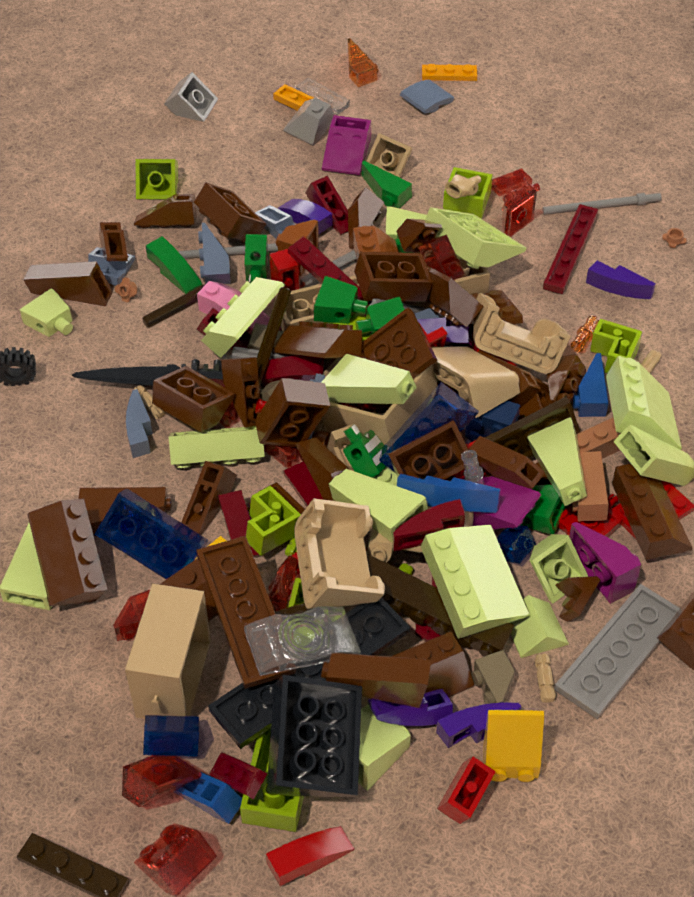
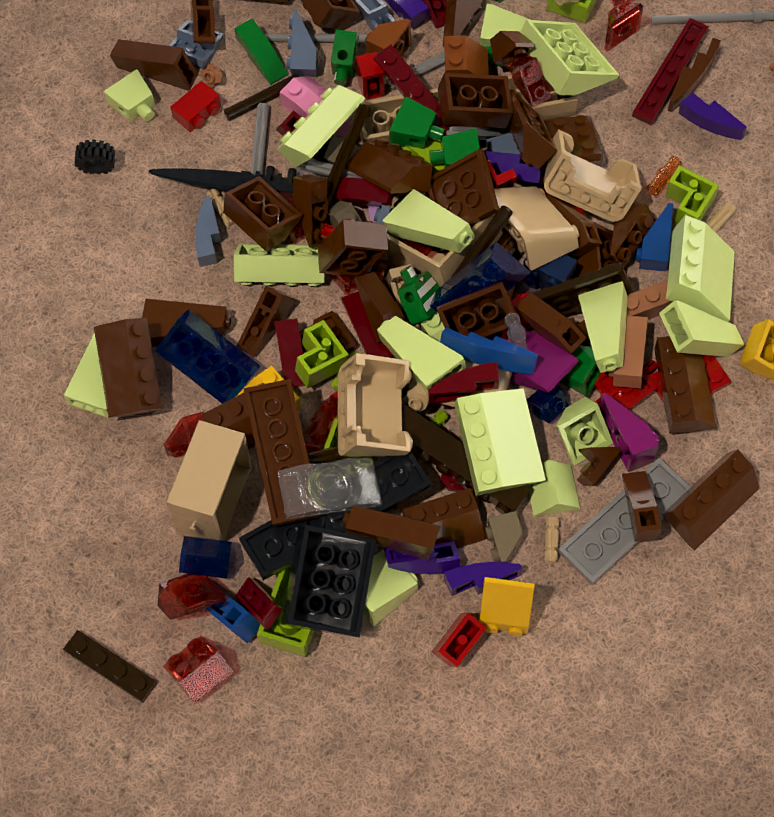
camera: 10 degrees right, 15 degrees up
(114, 316) = (196, 106): none -> red brick
(181, 338) = (260, 138): none -> light grey axle
(308, 854) = (313, 679): red slope -> none
(429, 384) = (487, 236): none -> dark brown axle
(593, 250) = (691, 78): none -> reddish brown slope
(636, 631) = (641, 506): none -> reddish brown slope

